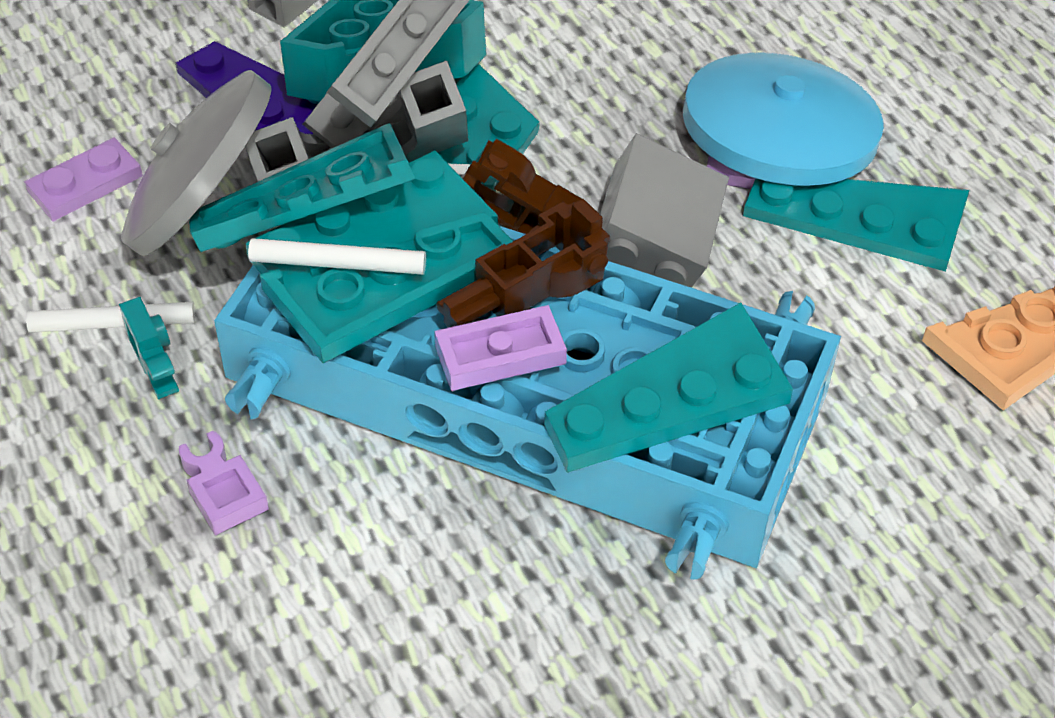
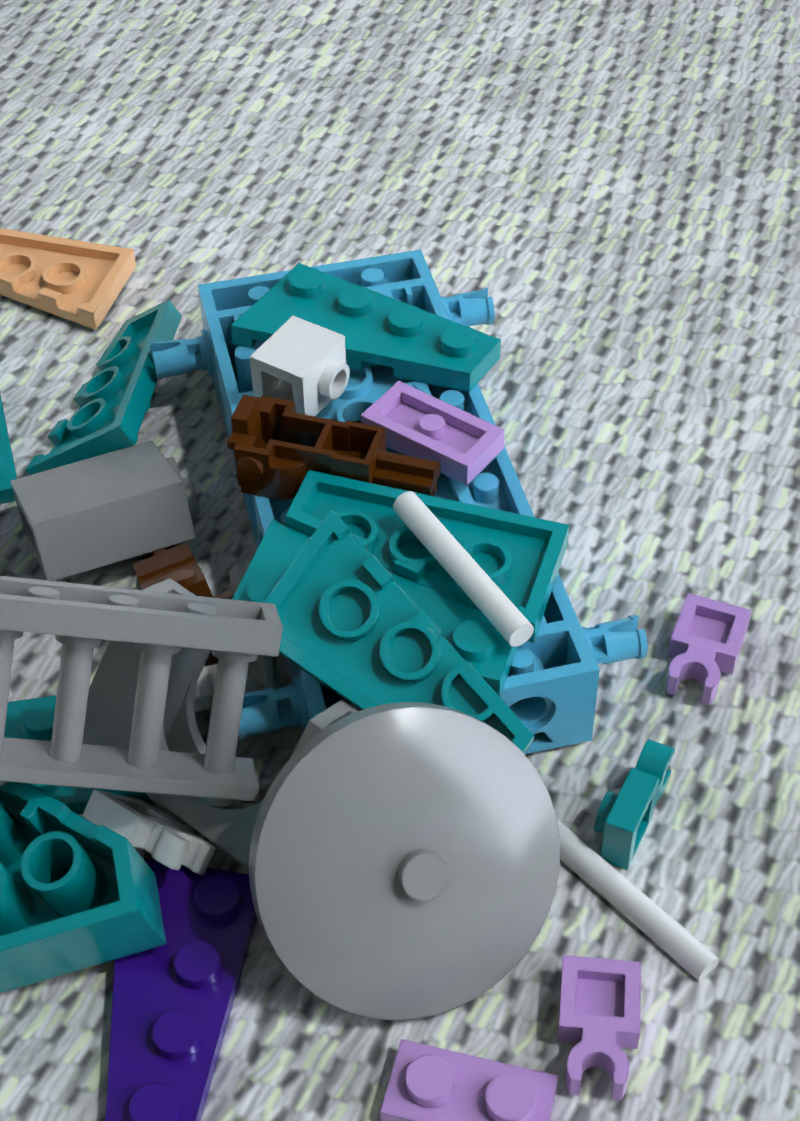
camera: 125 degrees left, 5 degrees down
(59, 250) = (601, 1015): none -> lavender plate
(638, 305) = (301, 366): none -> white brick
(756, 259) = (114, 398): none -> teal wing

